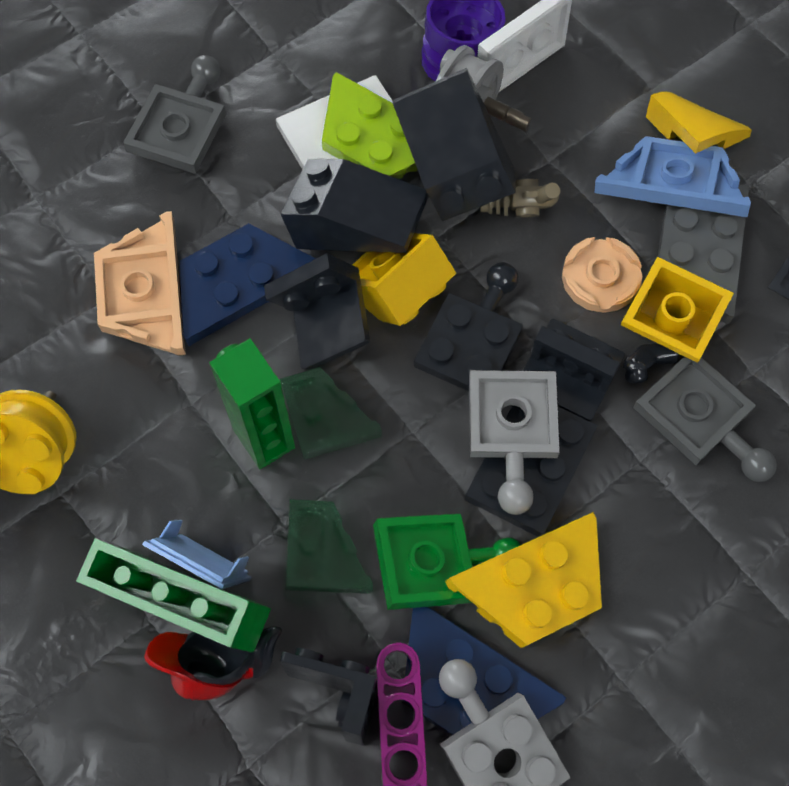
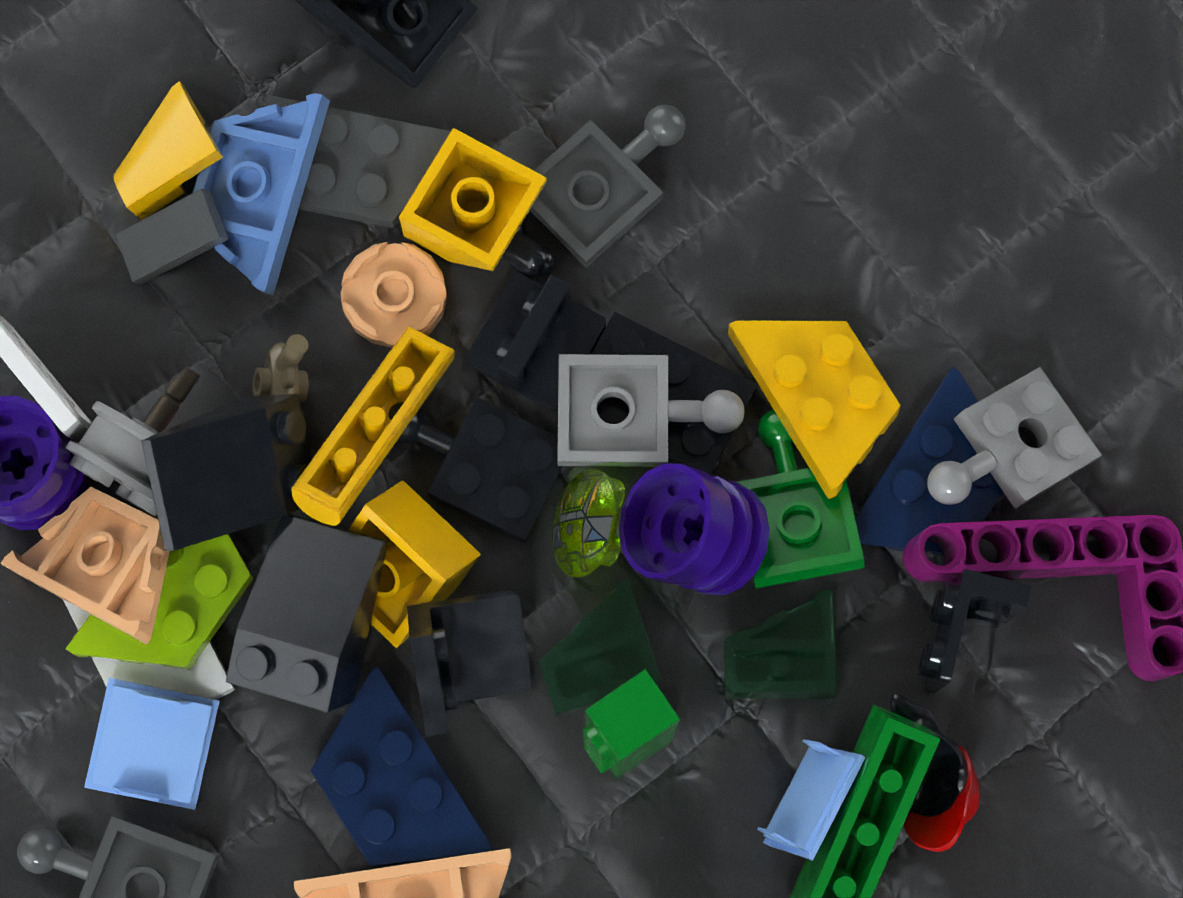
camera: 90 degrees left, 10 degrees up
(271, 129) = (151, 743): none -> light blue piece
(382, 80) = (101, 561): none -> light nougat wing
(415, 469) = (693, 529): none -> dark purple wheel
(424, 394) = (587, 523): none -> clear neon green dish
(496, 246) = (366, 431): none -> yellow brick
(633, 127) = (171, 236): none -> dark grey tile

